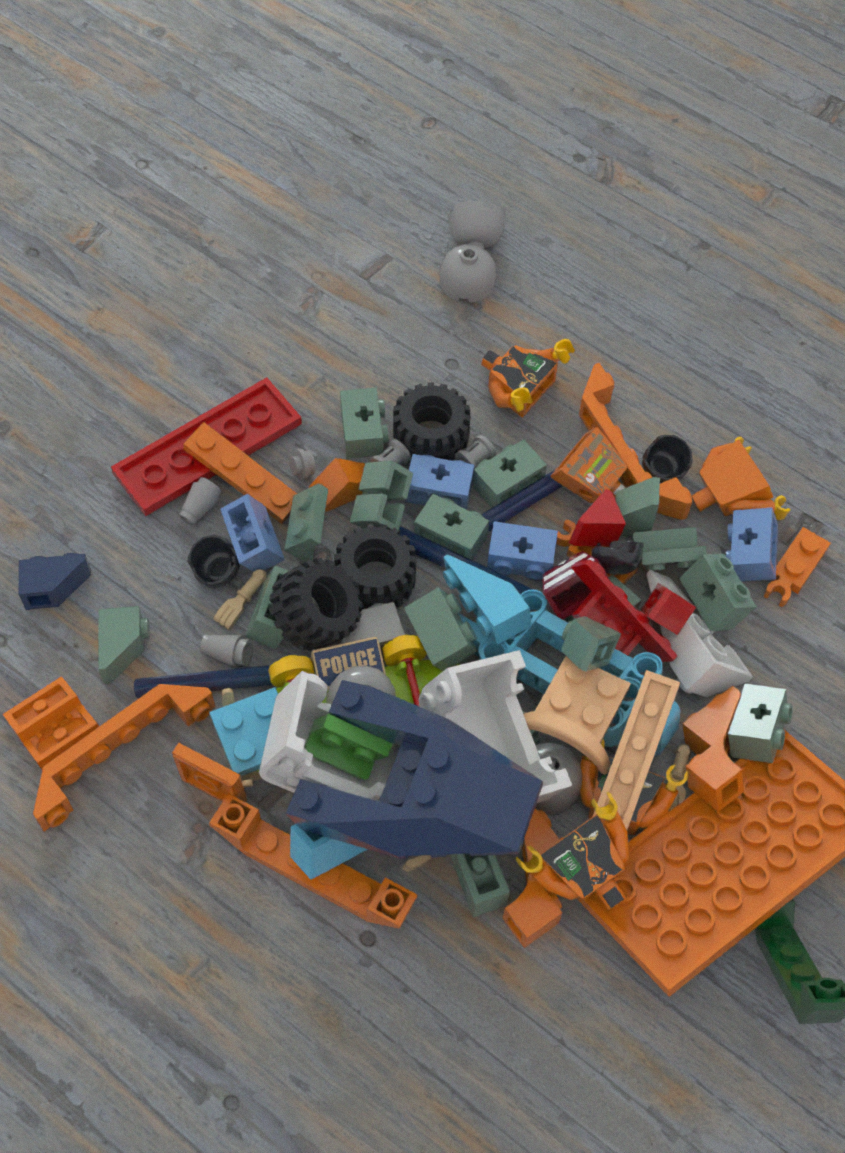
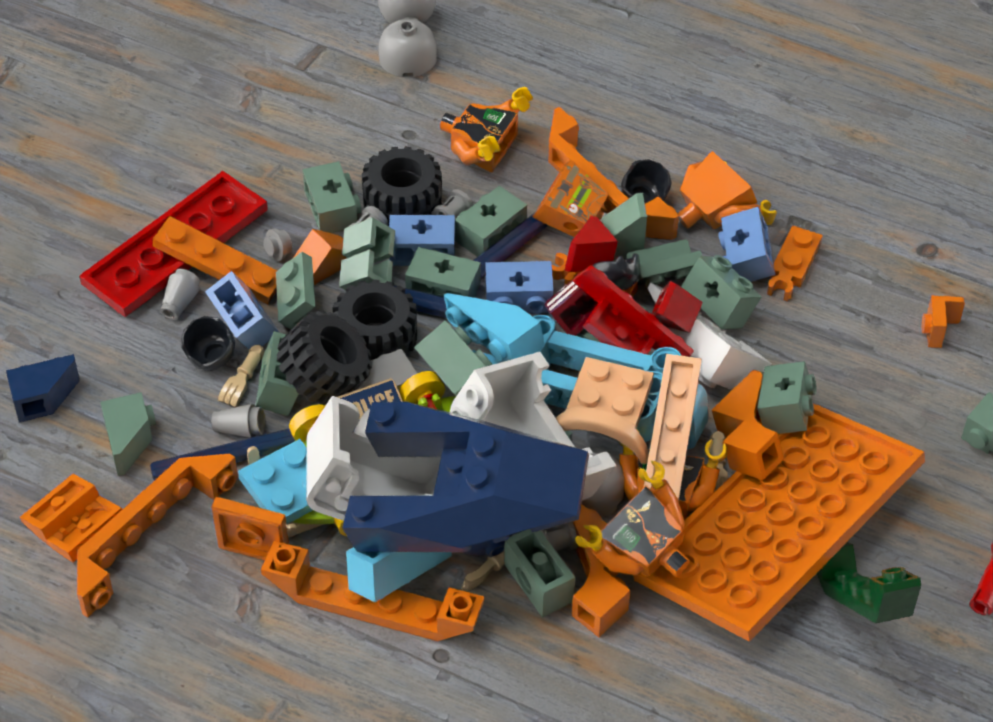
camera: 10 degrees left, 10 degrees down
(345, 746) = (388, 466): bright green bracket -> none
(589, 643) = (605, 342): sand green slope -> none

